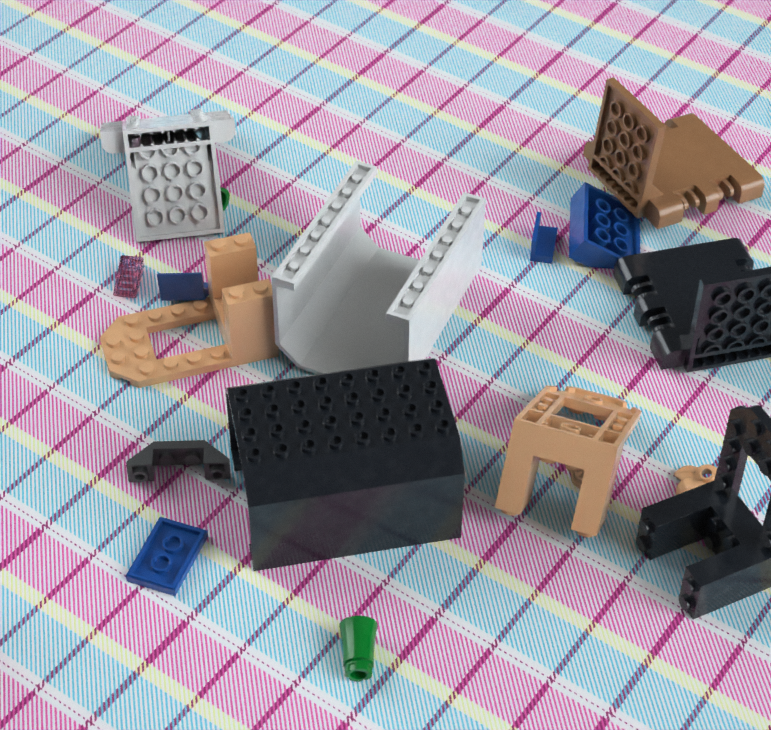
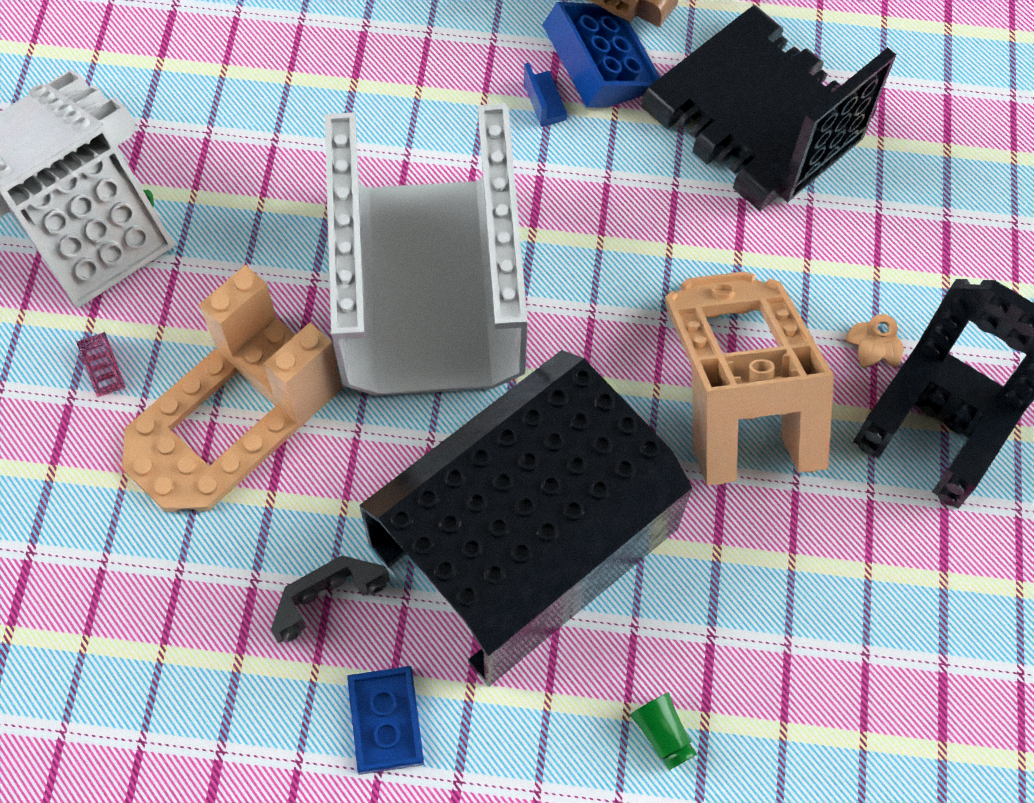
camera: 30 degrees left, 20 degrees up
(182, 286) = (182, 354): blue panel -> none

